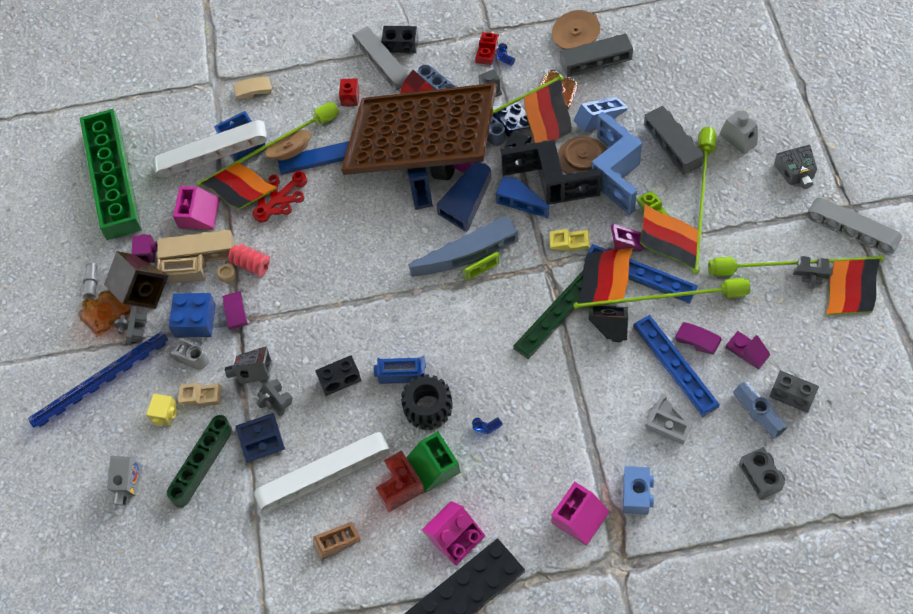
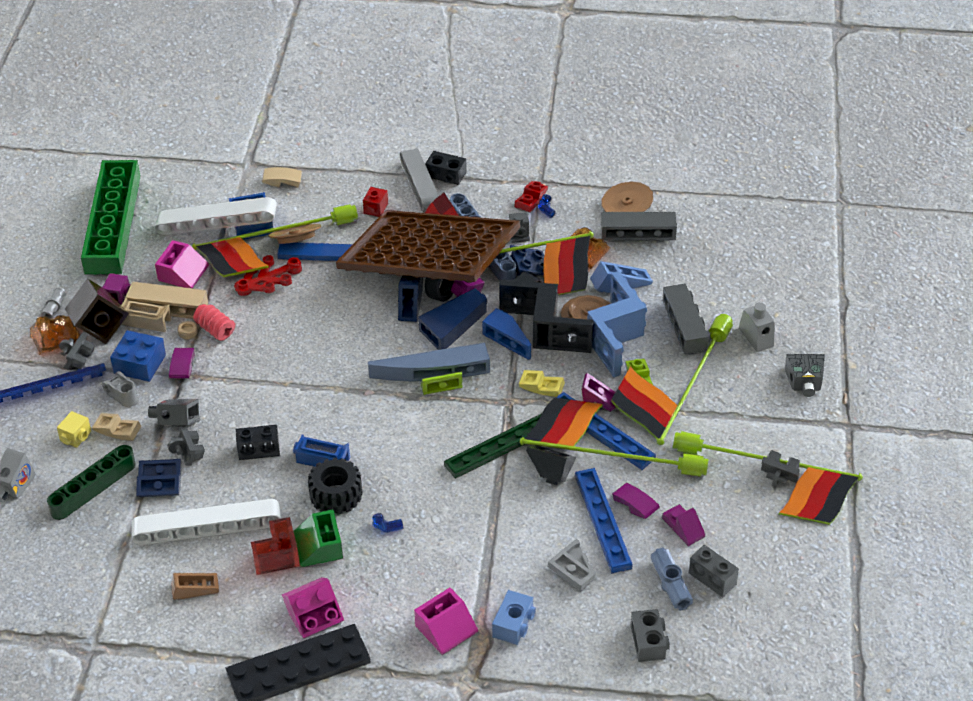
camera: 10 degrees right, 15 degrees down
(854, 226) = (842, 440): light grey beam -> none

